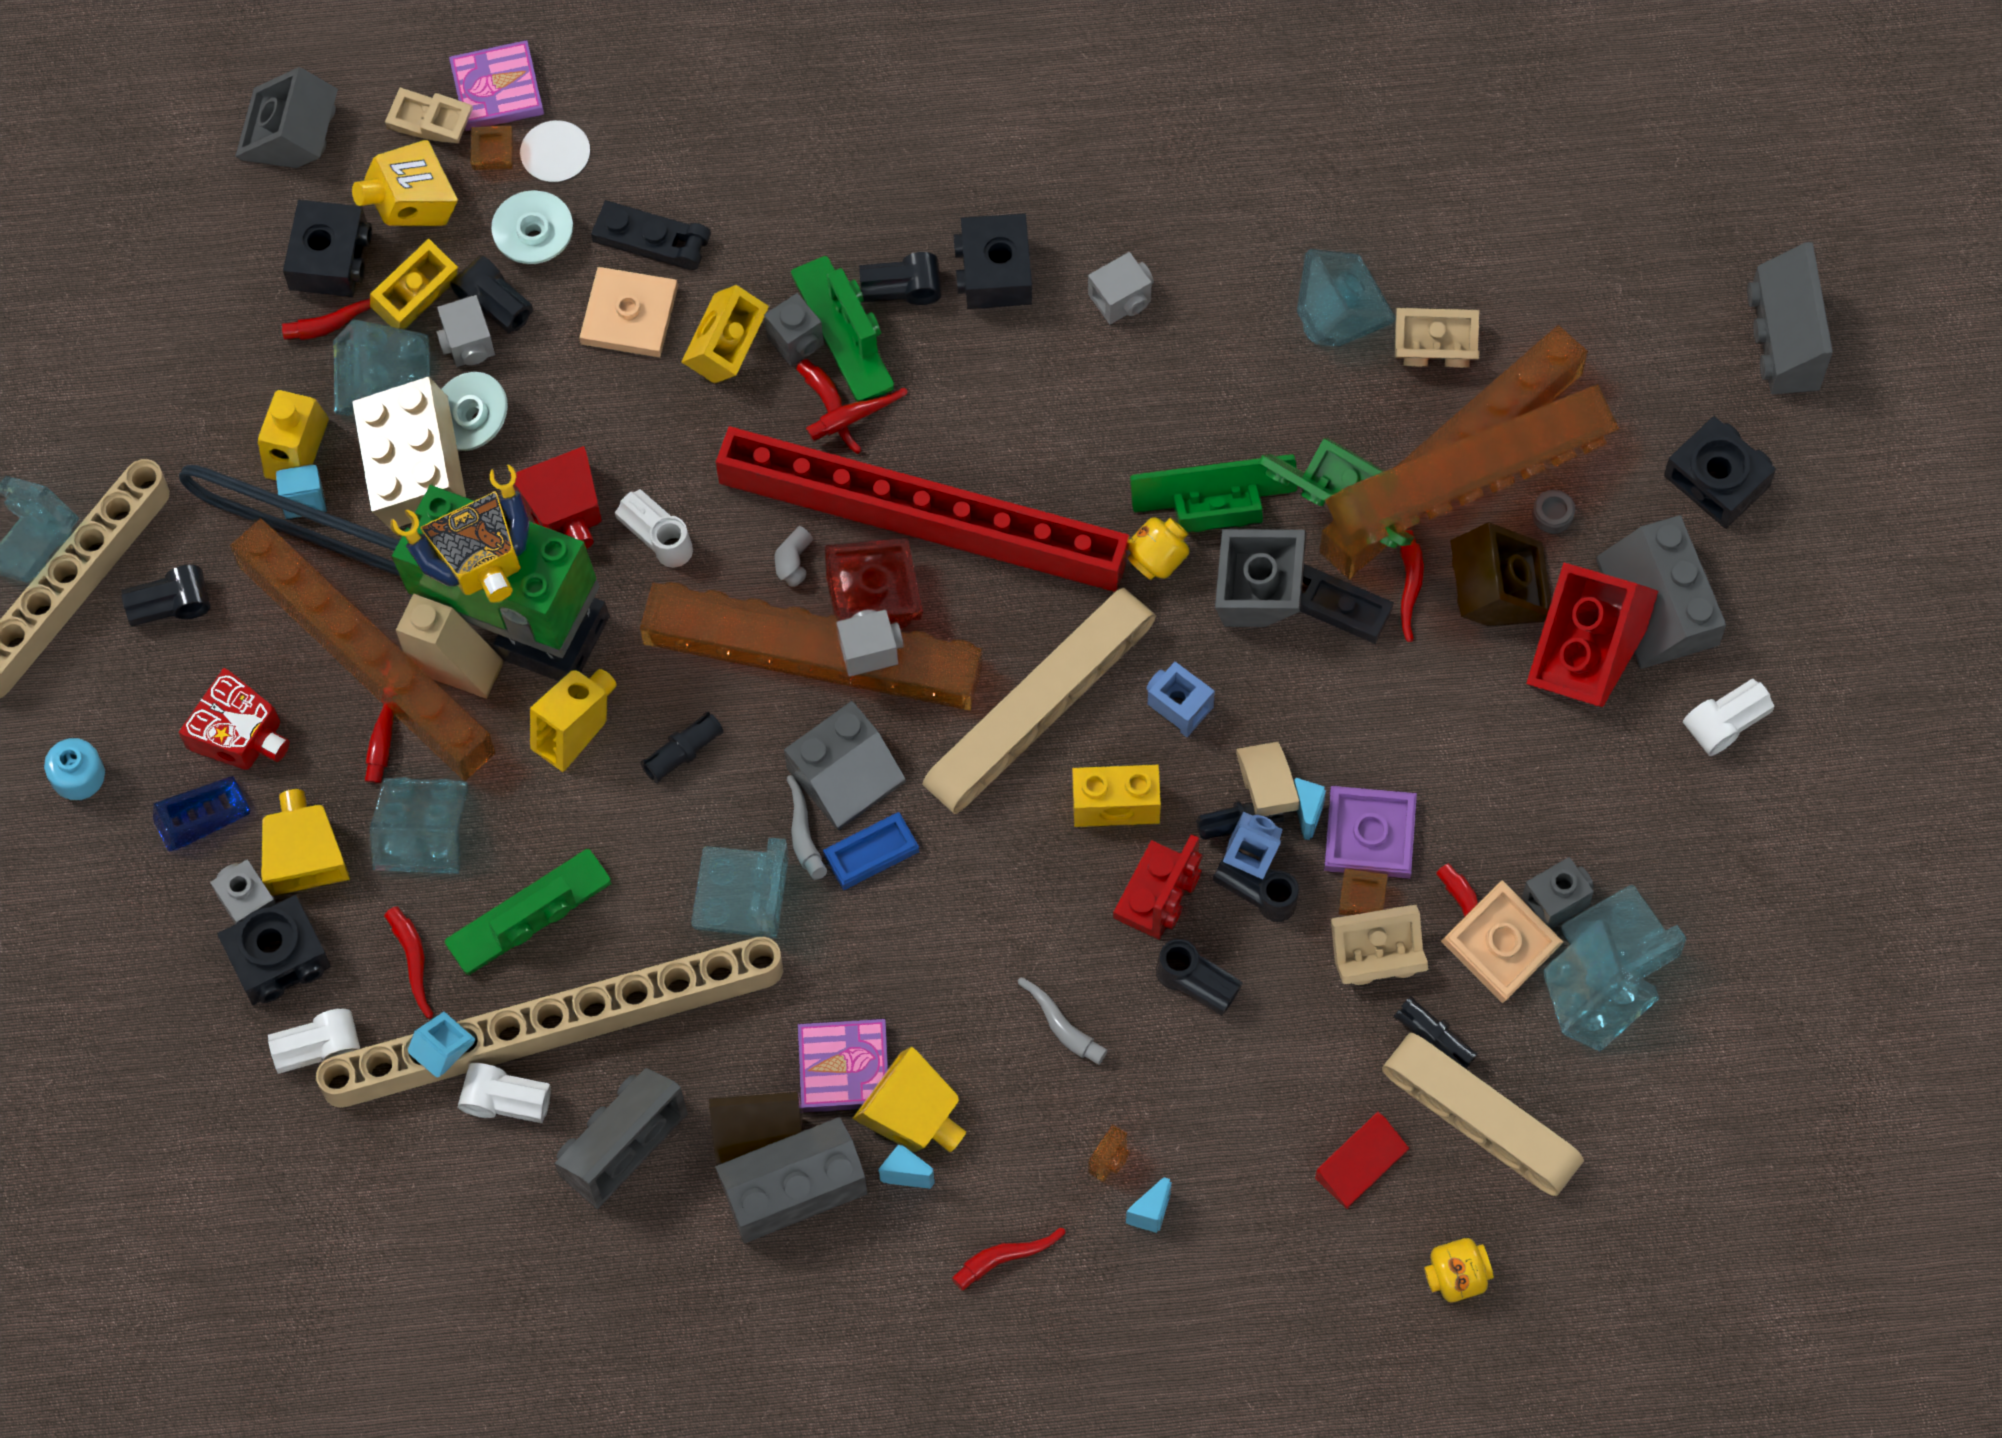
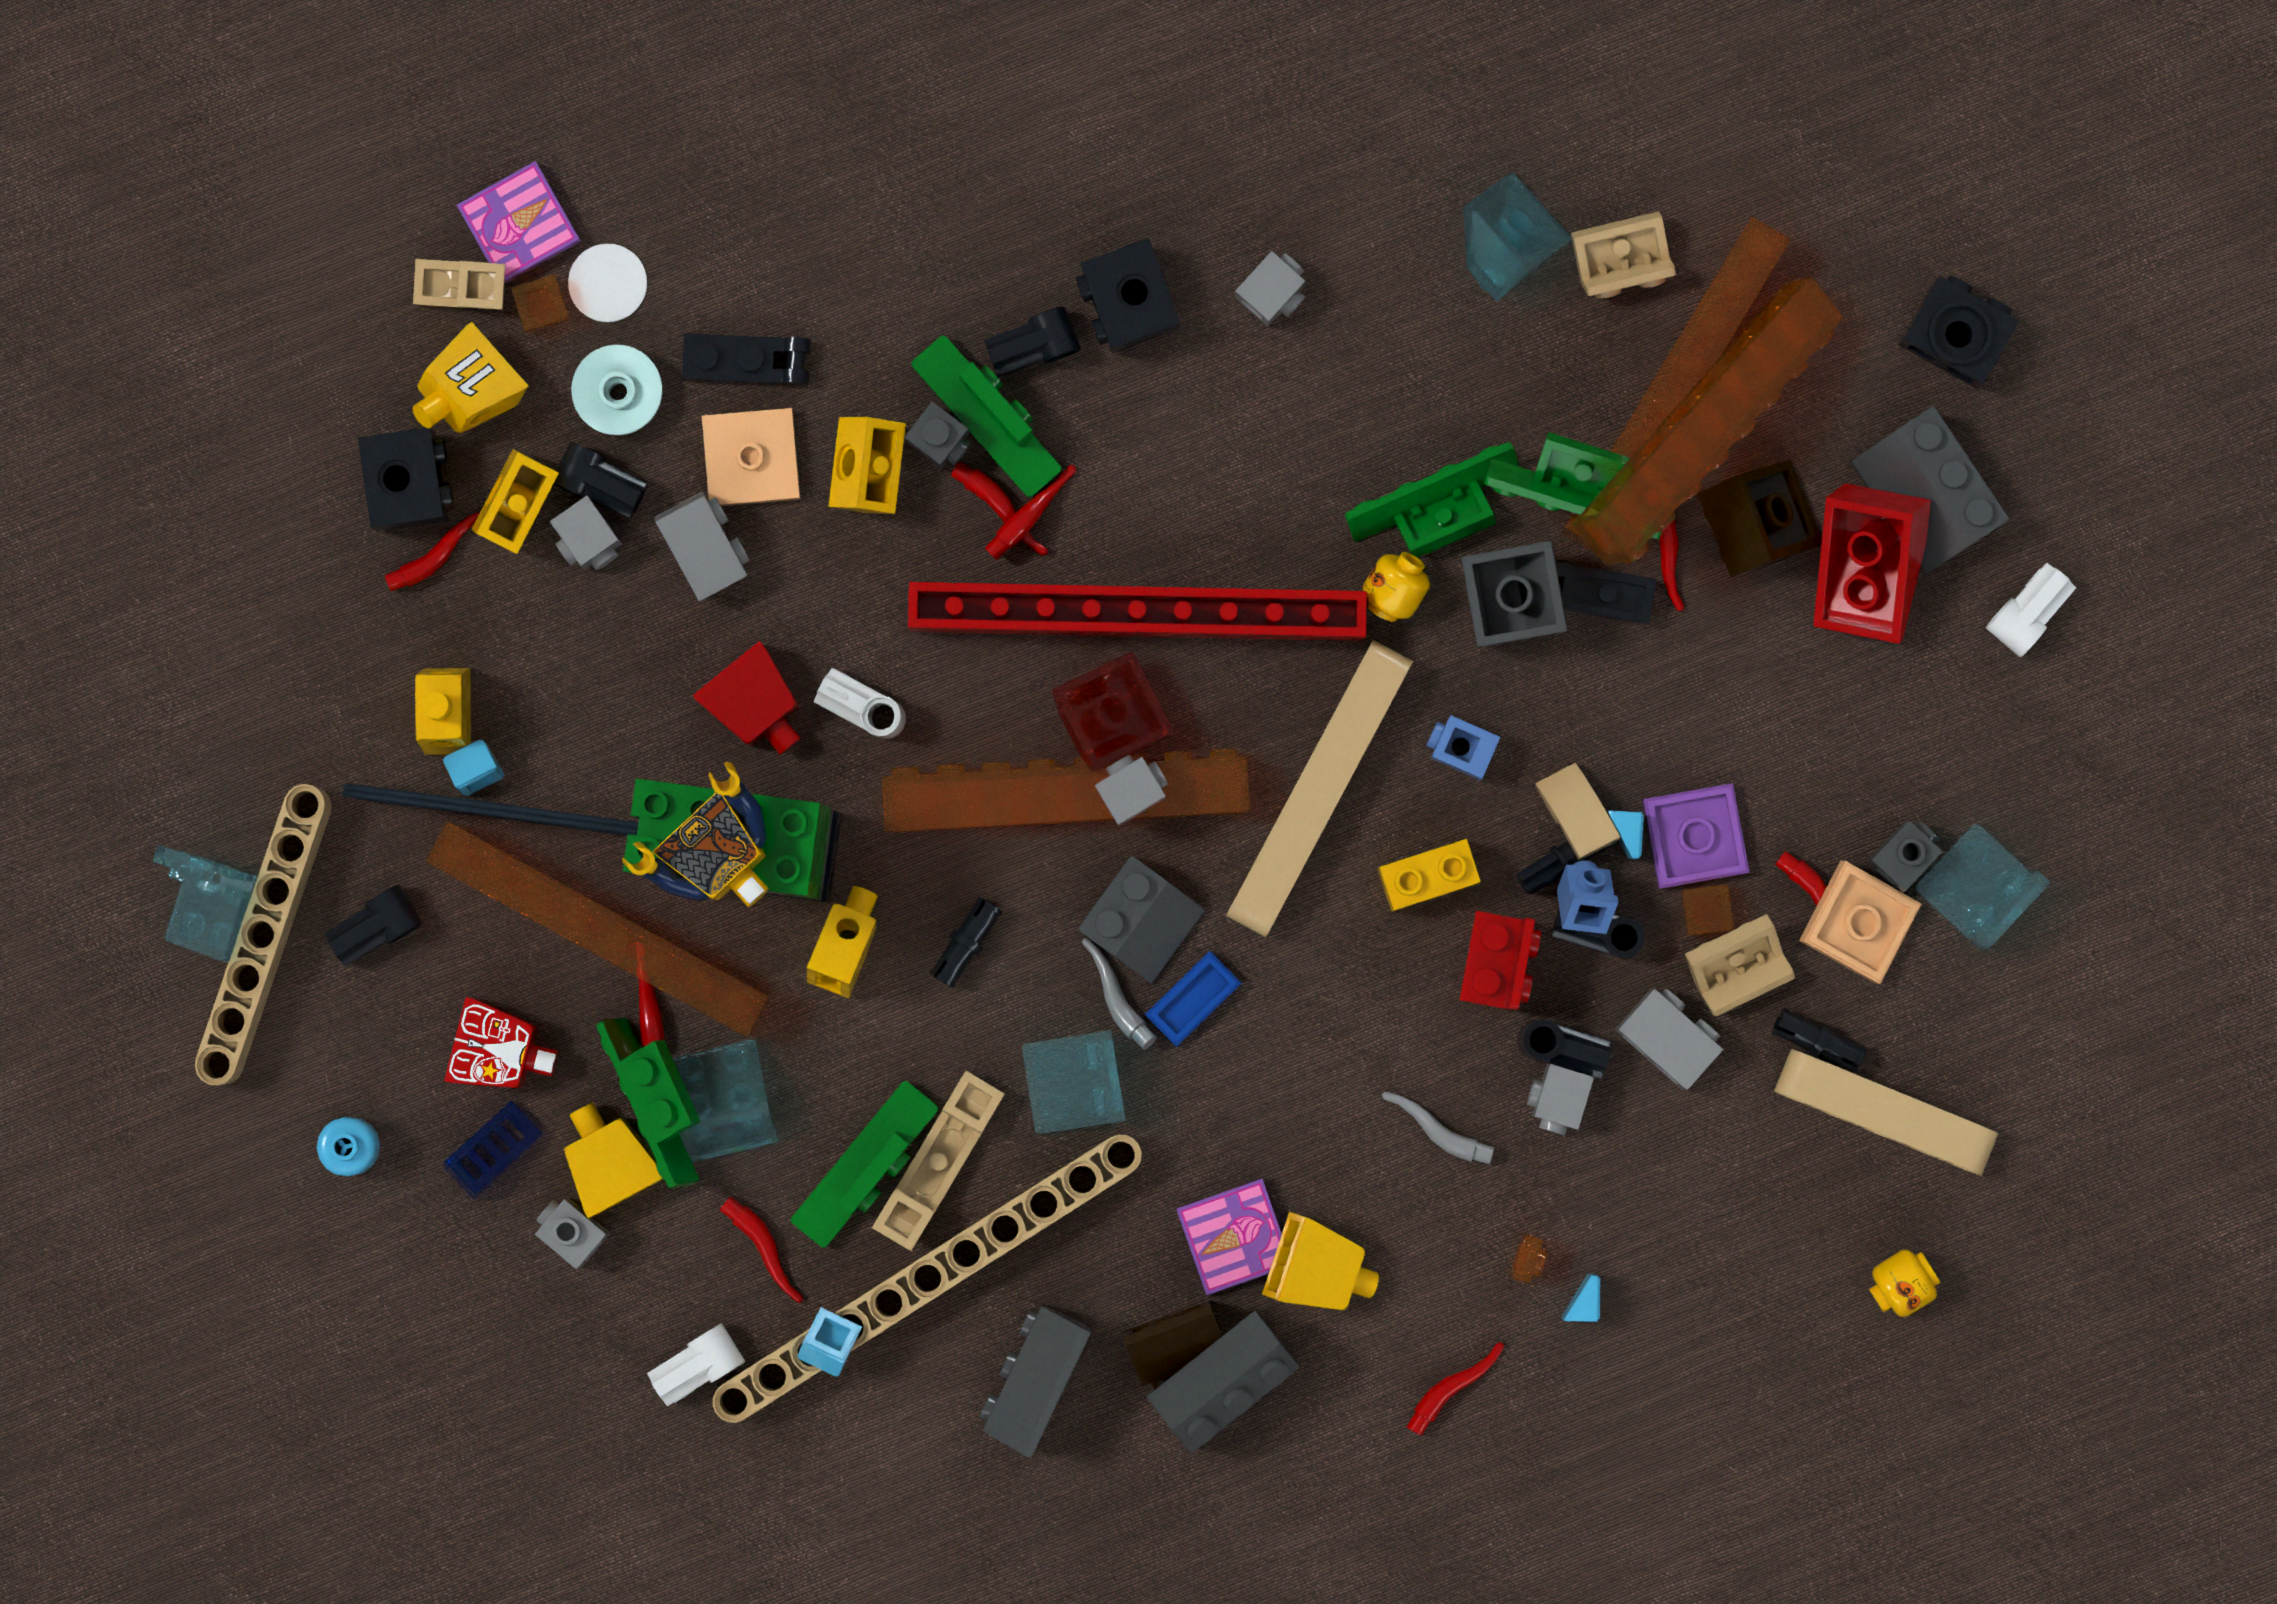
camera: 15 degrees left, 20 degrees up
(288, 120) = (306, 334): dark grey slope -> none
(295, 962) = (650, 1282): black brick -> none
(360, 796) = (656, 1095): none -> green bracket
(375, 359) = (509, 601): clear light blue bracket -> none
(407, 447) = (576, 697): brick -> none
(447, 647) = (685, 916): tan slope -> none
(473, 394) = (603, 631): light aqua dish -> none
(493, 1092) = (894, 1367): white piece -> none
(561, 362) = (702, 545): none -> light grey brick
(598, 925) = (938, 1161): none -> tan slope
(787, 557) = (1009, 699): light grey arm -> none
(906, 1169) = (1331, 1330): medium azure slope -> none
(1181, 1019) = (1559, 1098): none -> light grey brick
(1297, 994) = (1670, 1038): none -> light grey brick
(1361, 1160) = (1778, 1192): red slope -> none
(1553, 511) = (1794, 421): dark grey tile -> none
(1593, 991) = (1964, 955): clear light blue bracket -> none
(1791, 321) = (1994, 138): dark grey slope -> none

